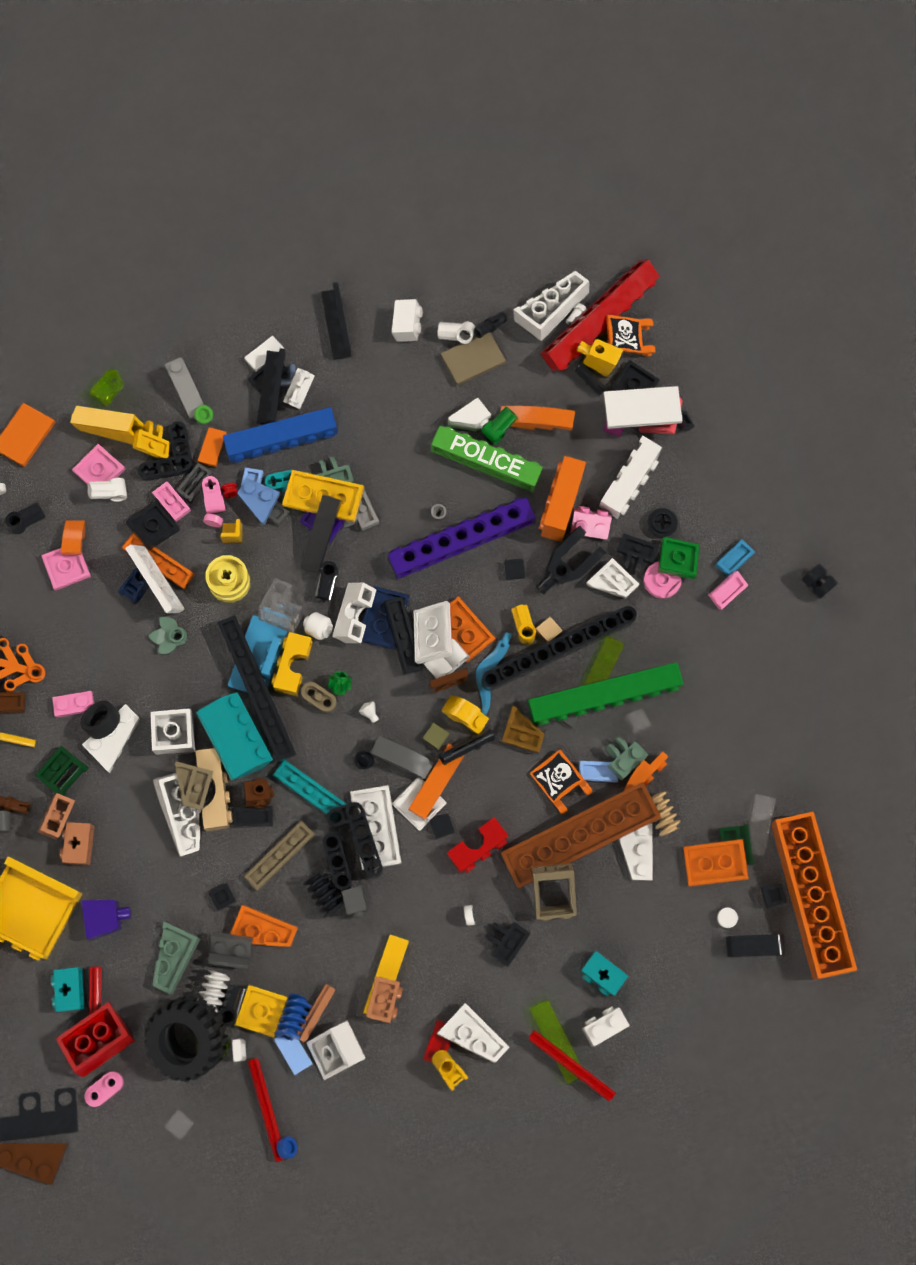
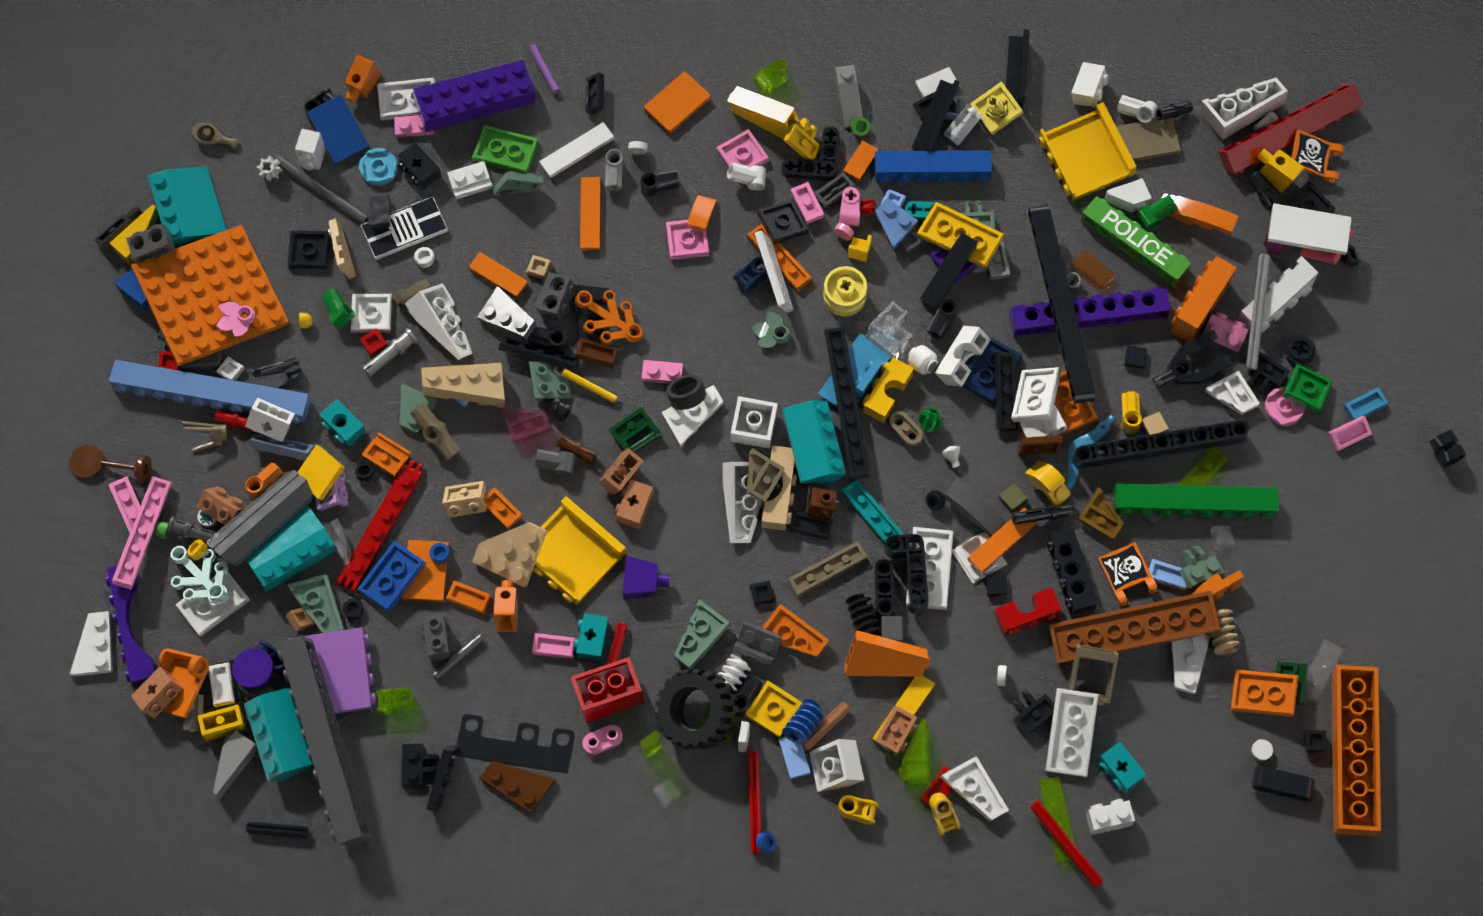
camera: 20 degrees right, 5 degrees down
(32, 1008) = (553, 646): none -> bright pink tile
(150, 1084) = (650, 744): none -> clear neon green tile
(321, 359) = (992, 102): none -> light yellow plate
(354, 930) = (884, 657): none -> orange slope
(369, 1088) = (860, 809): none -> yellow piece
(410, 1024) = (916, 761): none -> clear neon green slope
(421, 386) = (1088, 153): none -> yellow panel
(434, 540) = (1061, 304): none -> black beam
(454, 495) = (1093, 269): none -> clear orange tile
(497, 765) = (1068, 541): none -> black brick
(548, 953) = (1071, 732): none -> white tile
(616, 498) = (1258, 310): none -> light grey axle

